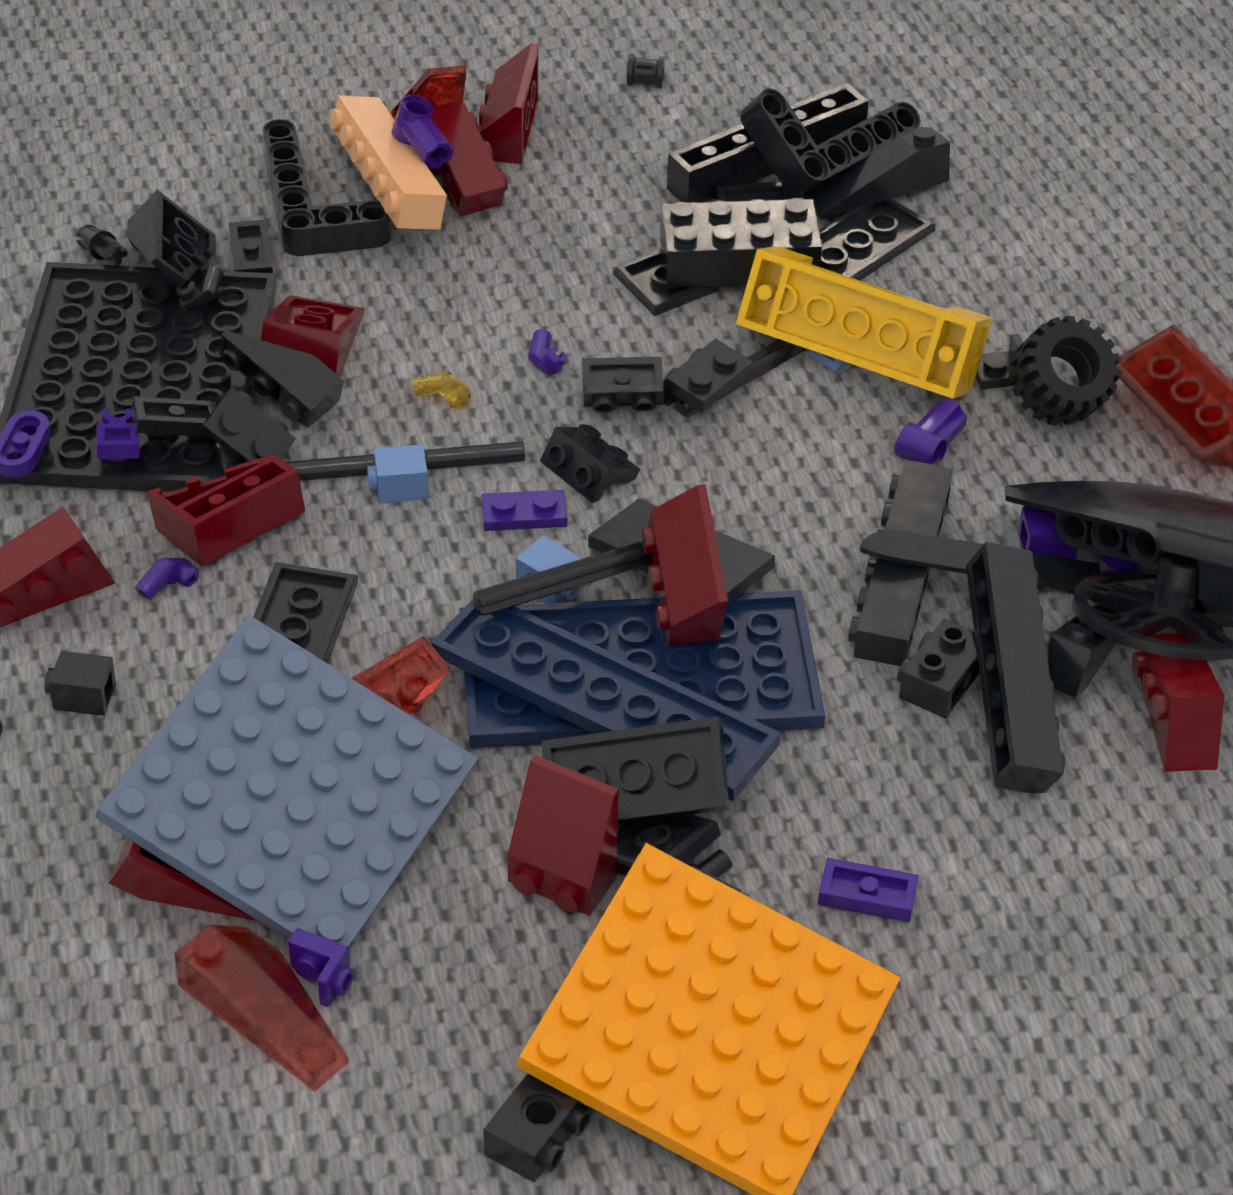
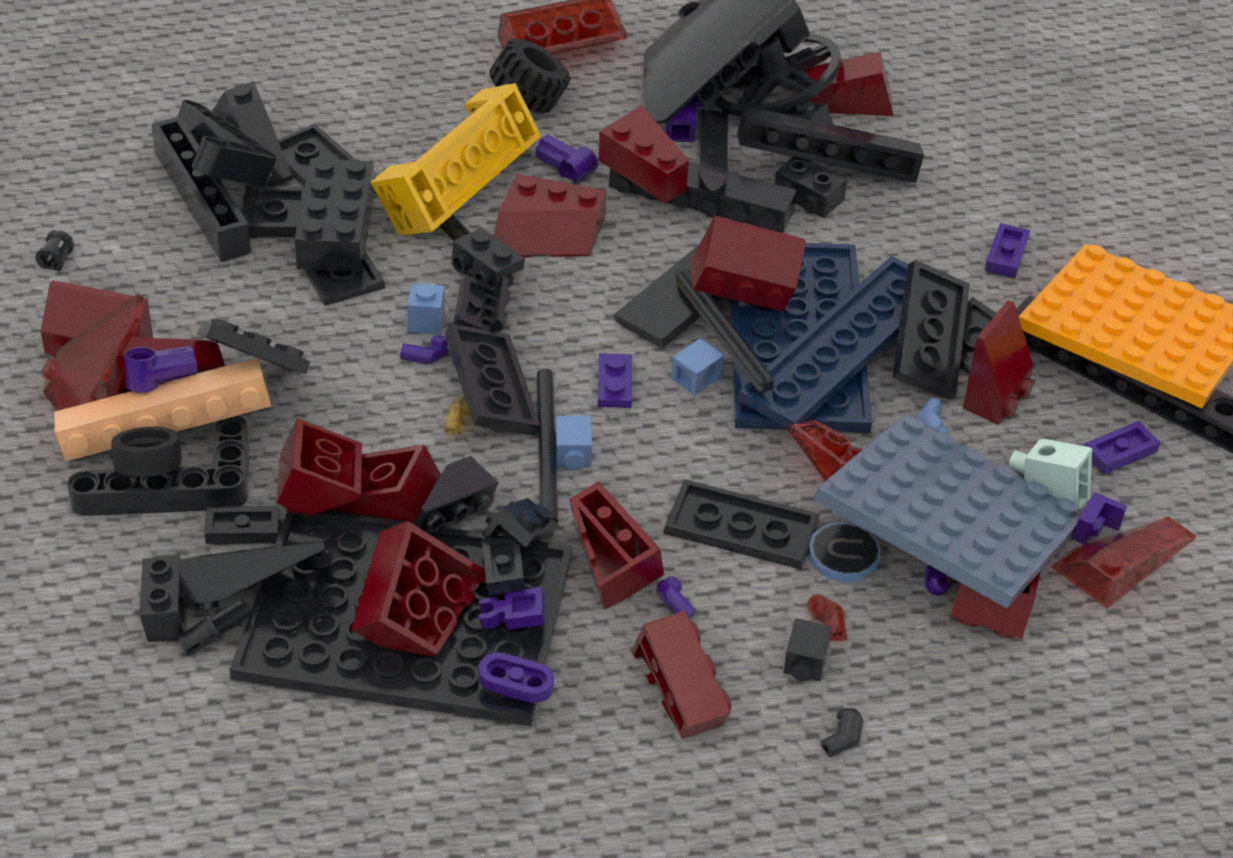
camera: 85 degrees left, 0 degrees up
(126, 351) = (414, 591): none -> dark red wedge
(131, 196) = (161, 599): none -> black brick
(148, 713) = (830, 614): none -> clear red arm
(311, 169) = (146, 451): none -> black tyre
(312, 270) = (318, 470): none -> dark red slope
(394, 903) = (1058, 467): none -> light aqua torso
(467, 193) = (254, 345): none -> black plate
(469, 1005) = (1122, 447): none -> dark purple plate
(490, 397) = (492, 380): none -> black plate
(499, 800) = (930, 417): none -> medium blue arm
(587, 461) = (568, 337): black bracket -> none
(602, 332) = (426, 308): none -> medium blue brick
(795, 423) = (550, 217): none -> dark red wedge
(908, 470) = (644, 155): none -> dark red wedge

